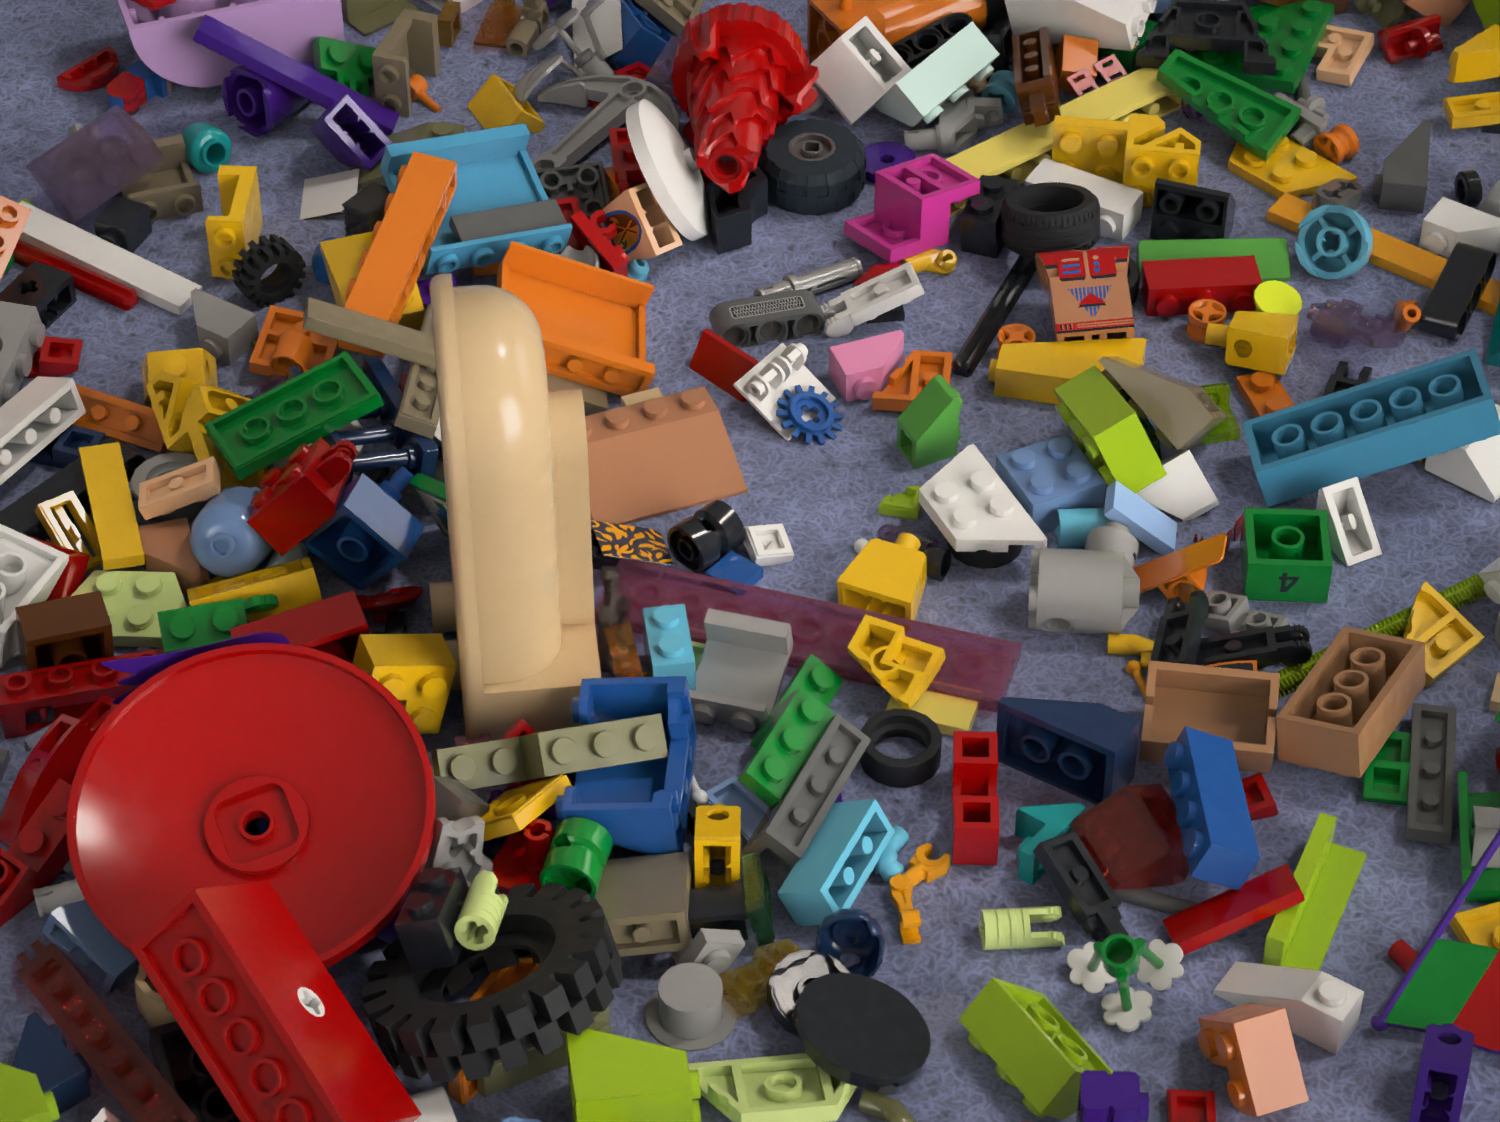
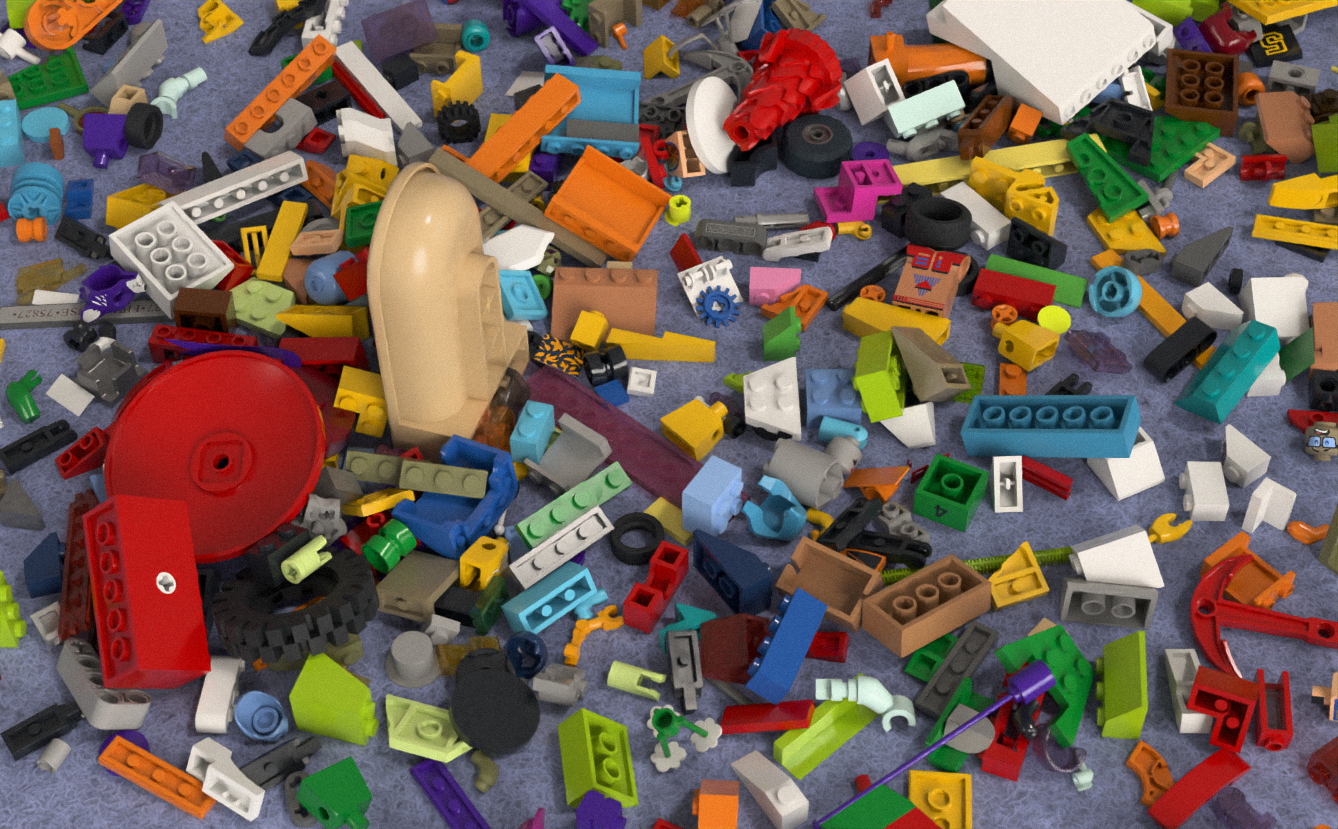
camera: 25 degrees right, 5 degrees up
(136, 322) = (366, 135): none -> white brick
(208, 622) = (271, 329): green hinge -> none
(656, 497) = (589, 330): none -> yellow brick
(668, 304) = (679, 210): none -> neon yellow piece
(780, 487) = (669, 348): none -> yellow slope
(894, 660) = (661, 482): yellow slope -> none
(927, 968) = (560, 685): none -> light grey cylinder
(990, 653) = (712, 497): none -> light blue brick
(1076, 652) = (778, 516): none -> dark azure piece
(1105, 72) = (1038, 135): piece -> none
(1141, 518) = (874, 438): light blue tile -> none
(1346, 831) = (867, 692): none -> light aqua piece
(1397, 500) = (1046, 478): none -> red tile
(1406, 314) = (1138, 354): orange arm -> none

